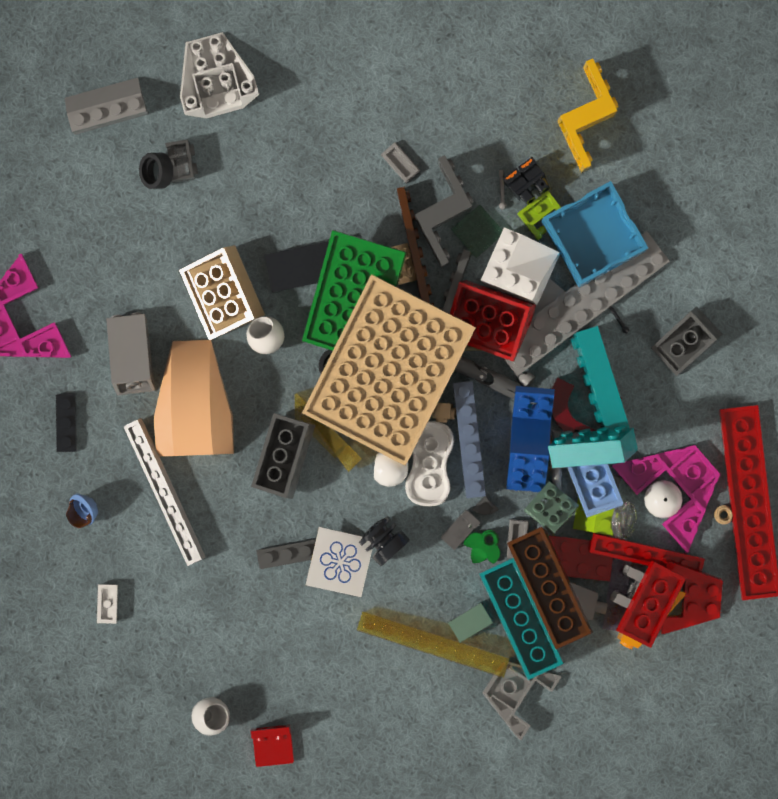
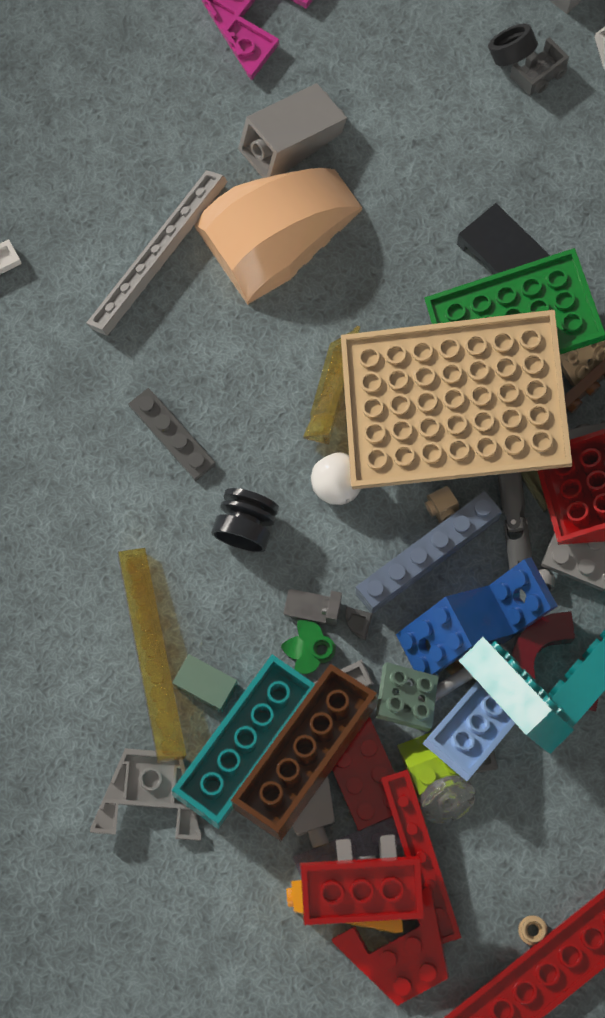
camera: 65 degrees right, 15 degrees down
(66, 423) = (174, 113): black plate -> none
(81, 511) = (84, 177): piece -> none
(222, 292) = (424, 188): tan slope -> none
(265, 335) = (405, 254): white helmet -> none
(283, 456) = (277, 350): dark grey brick -> none
(339, 562) = (186, 487): white sticker -> none
(428, 478) = (350, 533): white plate -> none
(655, 497) = (492, 836): white helmet -> none
(692, 474) = (559, 853): dark pink wing -> none

